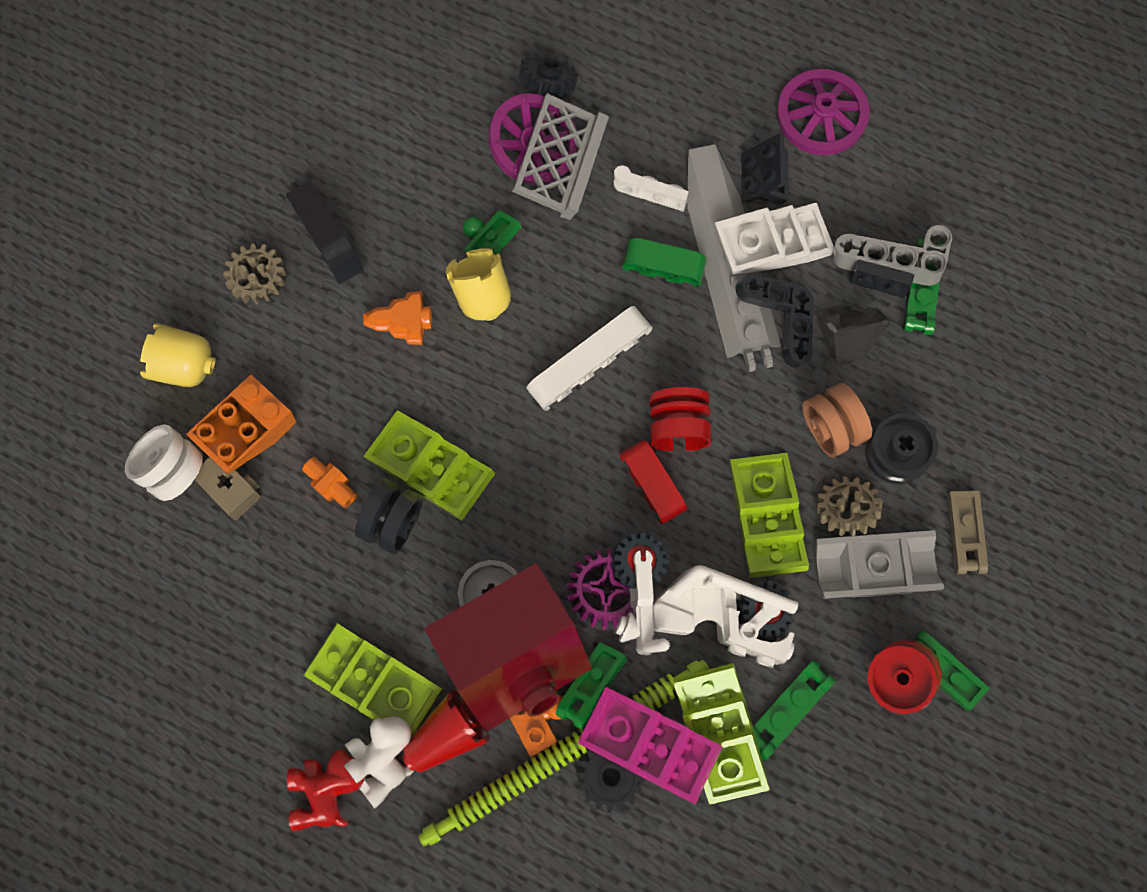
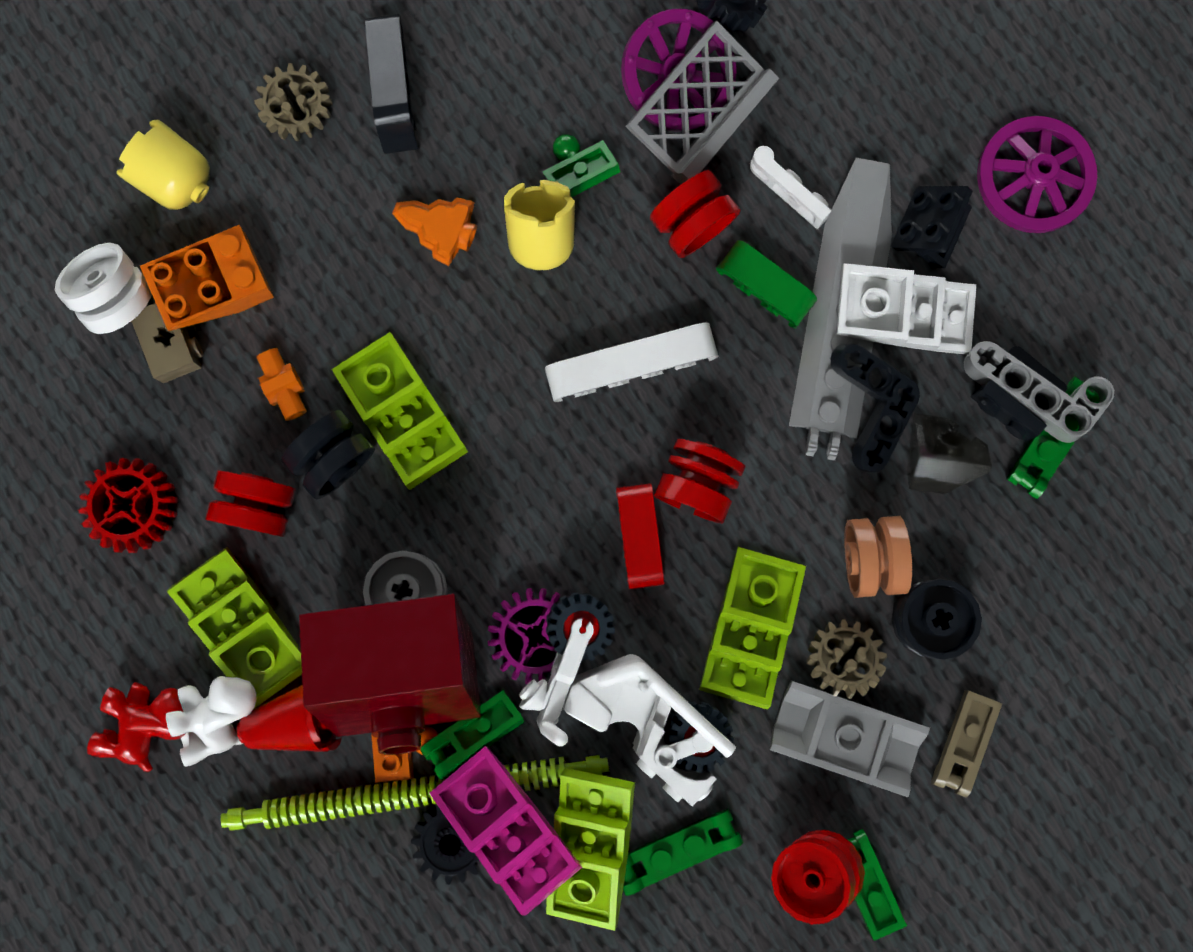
camera: 20 degrees right, 10 degrees up
(222, 612) = (104, 522): none -> red gear
(343, 578) = (250, 503): none -> red wheel
(590, 232) = (694, 213): none -> red wheel

